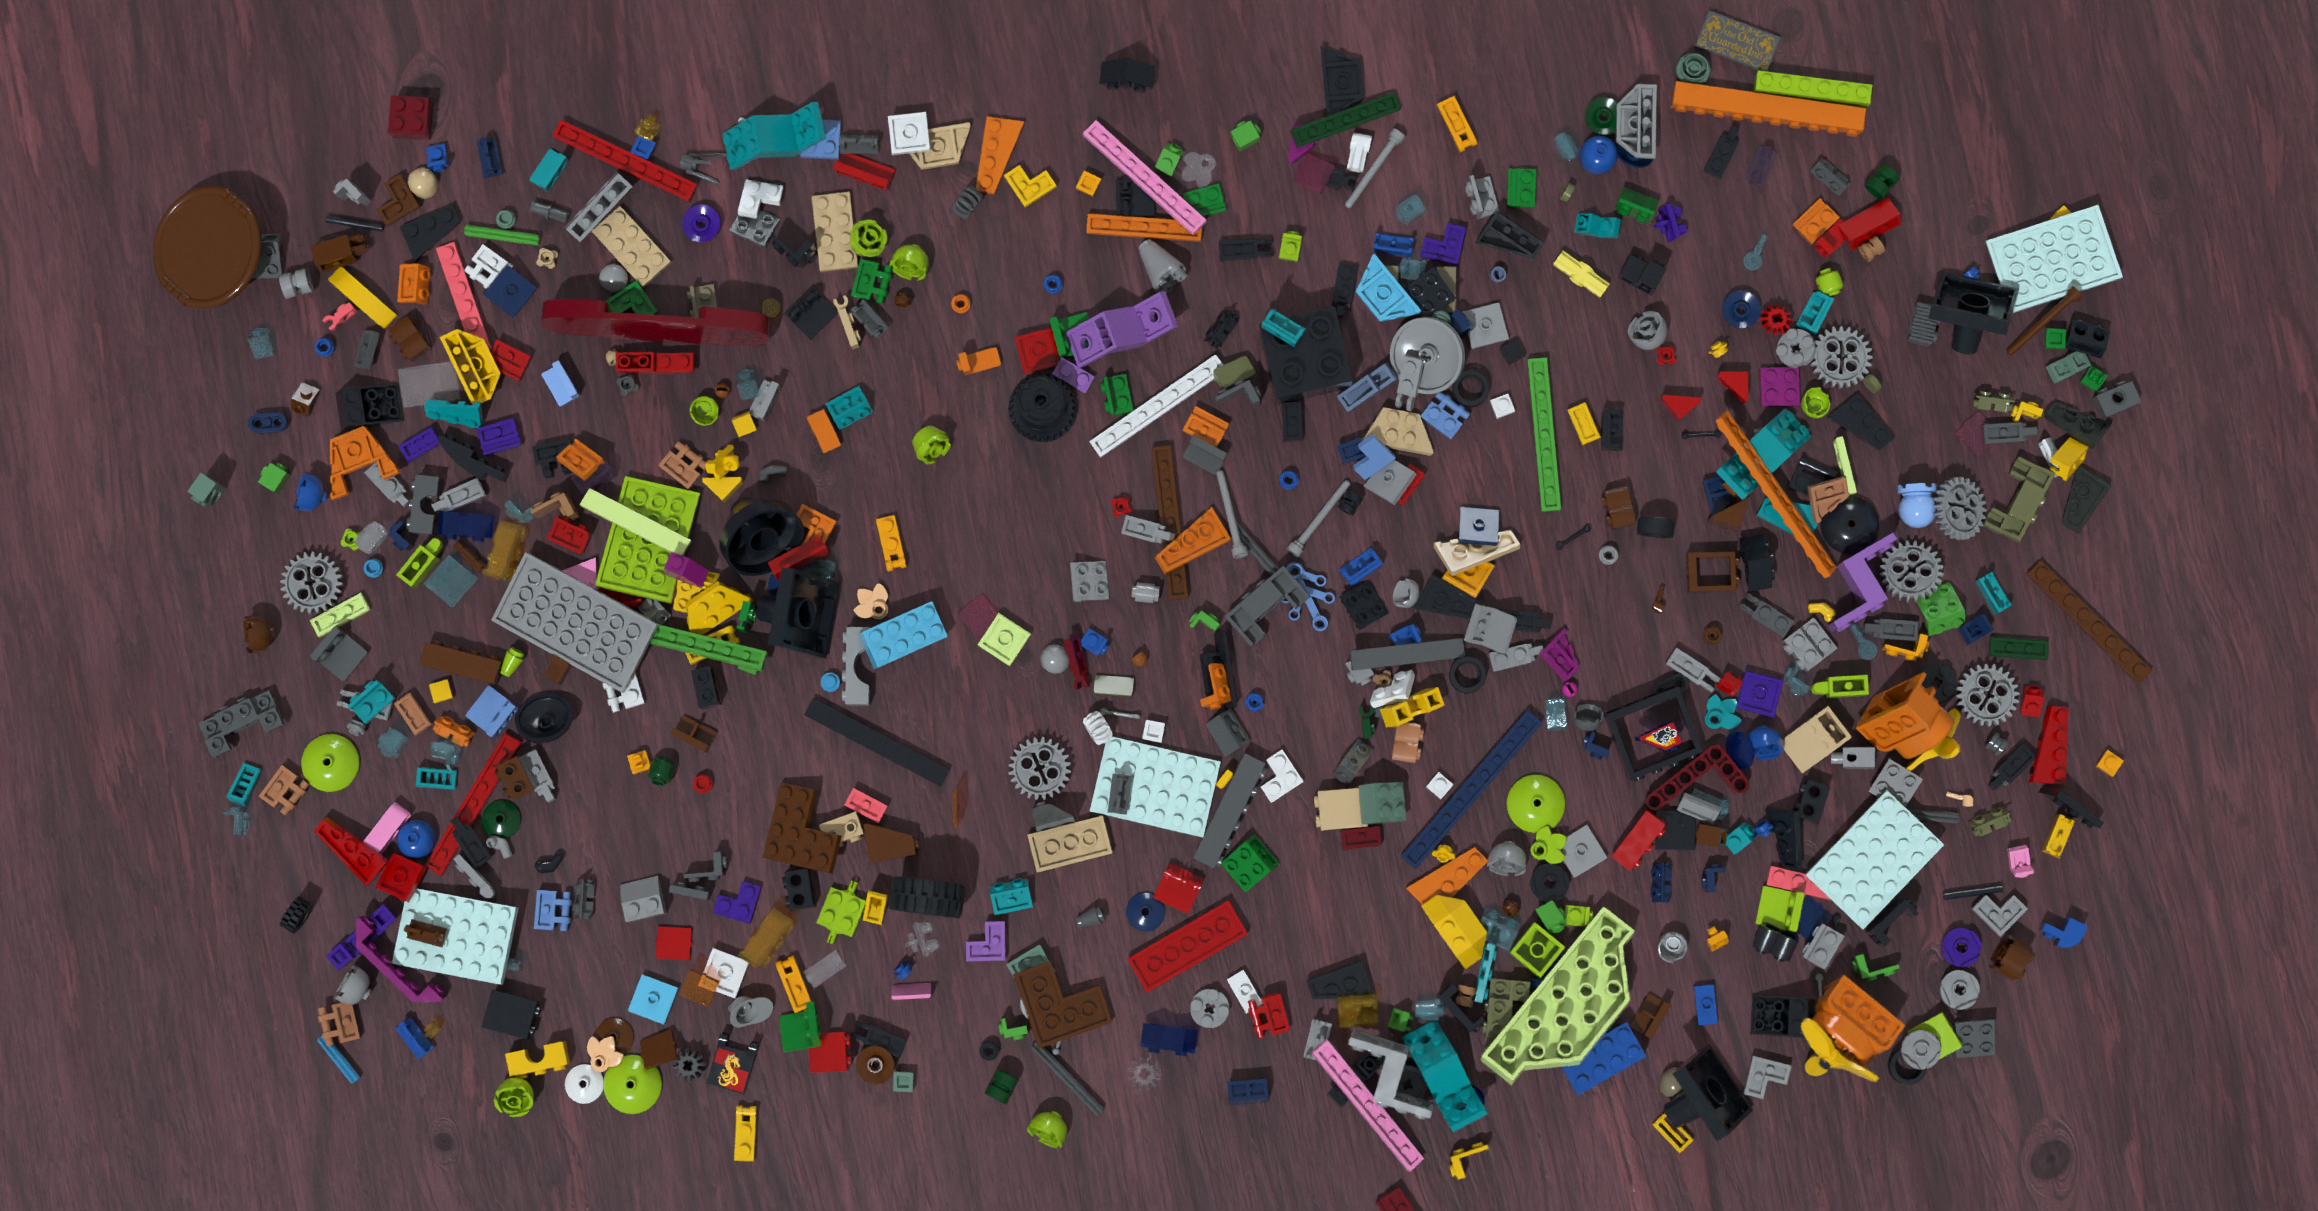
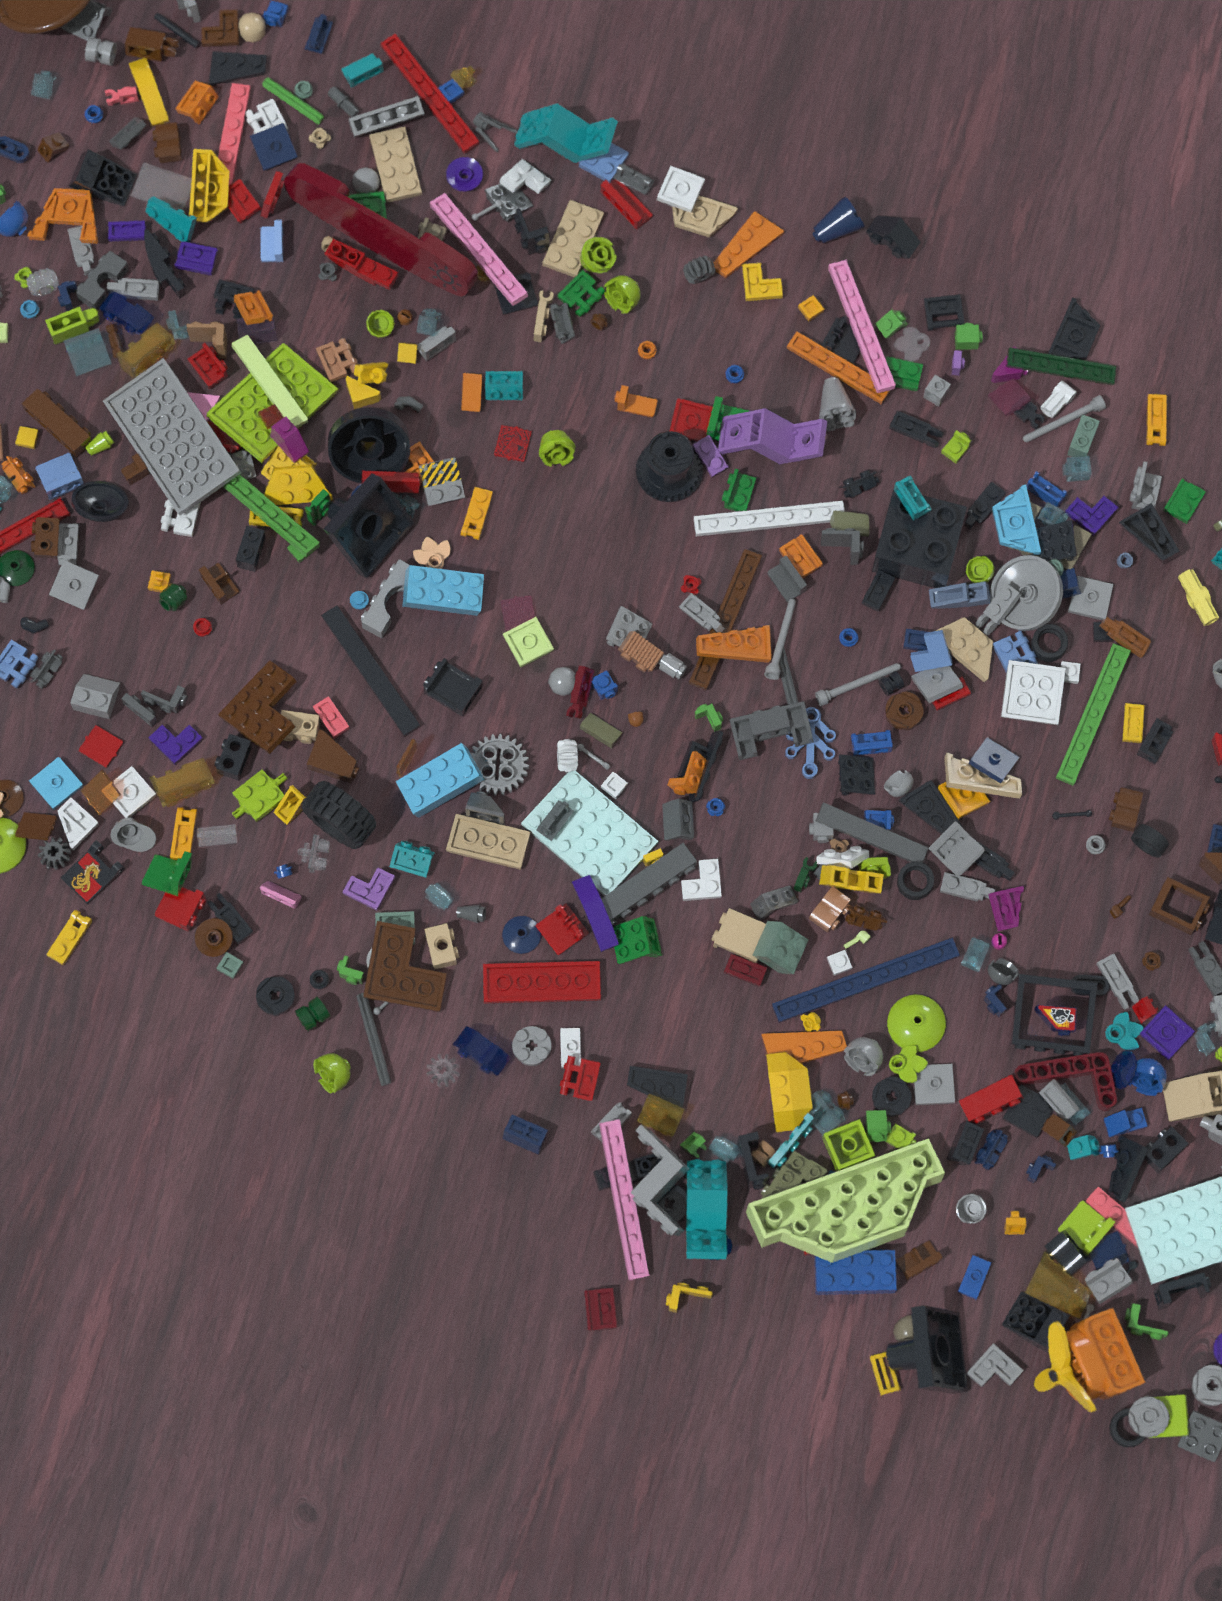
camera: 20 degrees right, 10 degrees down
(538, 346) = (272, 195): none -> red plate
(564, 808) = (74, 584): none -> light grey plate
(655, 555) = (270, 416): none -> clear red tile
(692, 1026) = (76, 822): none -> white wing
(749, 237) = (499, 203): none -> light grey hinge
(755, 291) = (478, 249): none -> bright pink plate
(844, 532) = (441, 481): none -> slope
(887, 458) = (512, 443): none -> red piece
(949, 1093) = (275, 985): none -> black plate
(959, 718) = (452, 687): none -> black panel
(997, 813) = (440, 780): none -> medium azure brick
(1053, 918) = (438, 896): none -> clear light blue brick
(1069, 88) = (838, 222): none -> dark blue cone
(1070, 958) = (435, 936): none -> tan brick
(1111, 595) = (640, 651): none -> nougat brick
(1201, 859) = (595, 913): none -> dark purple slope
(1207, 118) = (943, 306): none -> black plate
(1245, 202) = (937, 390): none -> light grey brick
(1249, 165) = (957, 362): none -> medium lavender plate
(1367, 530) = (902, 700): none -> reddish brown plate
(1373, 353) = (980, 569): none -> lime hair
(1400, 177) = (1083, 437): none -> sand green brick
(1429, 679) = (878, 865): none -> lime bracket
(1447, 750) = (863, 936): none -> yellowish green hand
(1448, 731) = (859, 914): none -> reddish brown hinge
(1481, 444) = (1033, 692): none -> white plate
(1536, 346) = (1126, 636): none -> dark orange hinge
(1636, 891) = (965, 1143): none -> black hinge
(1764, 794) = (1125, 1122): none -> blue slope
(1784, 978) = (1057, 1288): none -> clear yellow wedge

